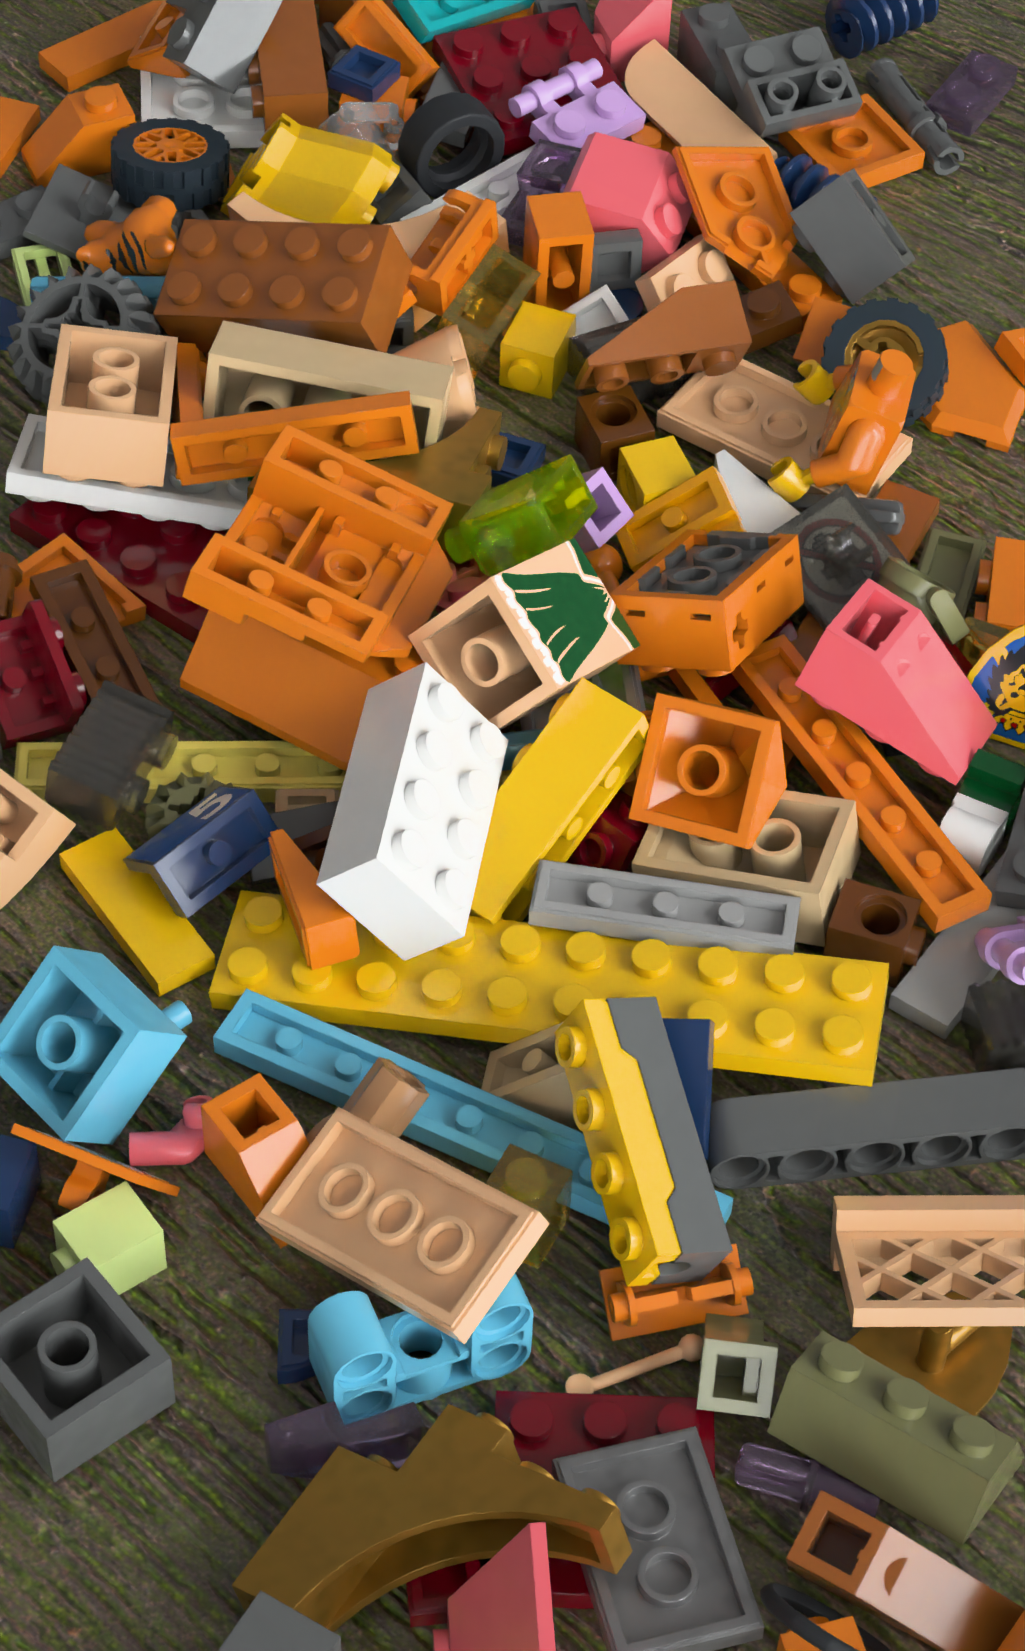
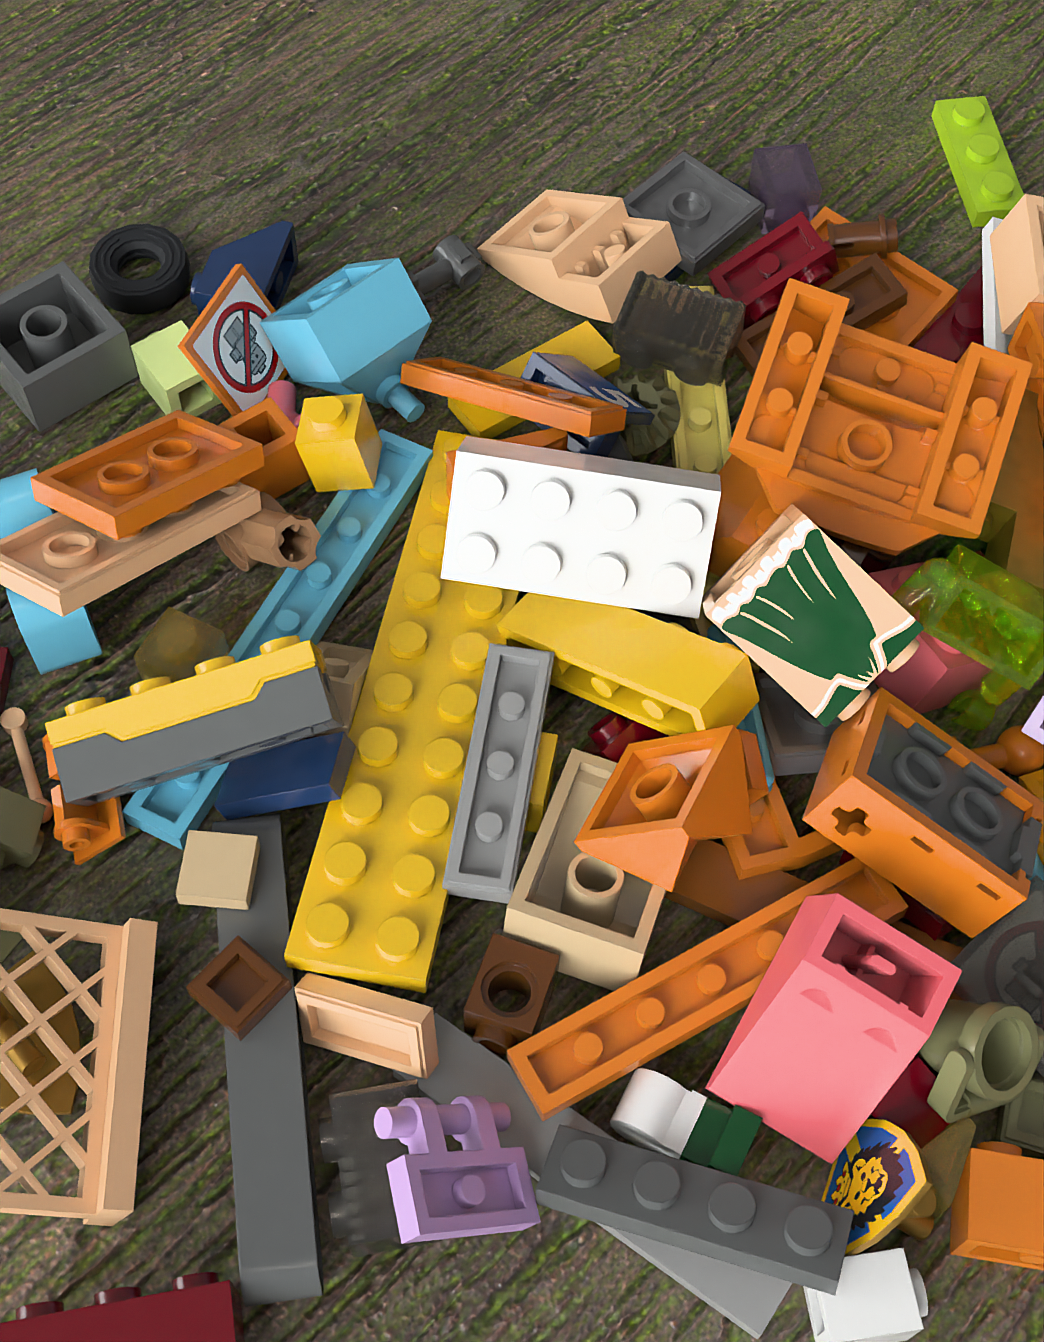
camera: 90 degrees right, 10 degrees up
(211, 886) = (514, 396): none -> orange tile
(261, 1040) = (339, 443): none -> yellow brick
(332, 1189) = (147, 474): none -> orange plate
(783, 1136) = (218, 870): none -> tan tile
(901, 1115) = (239, 987): none -> reddish brown tile
(920, 1022) = (367, 1025): none -> light nougat tile

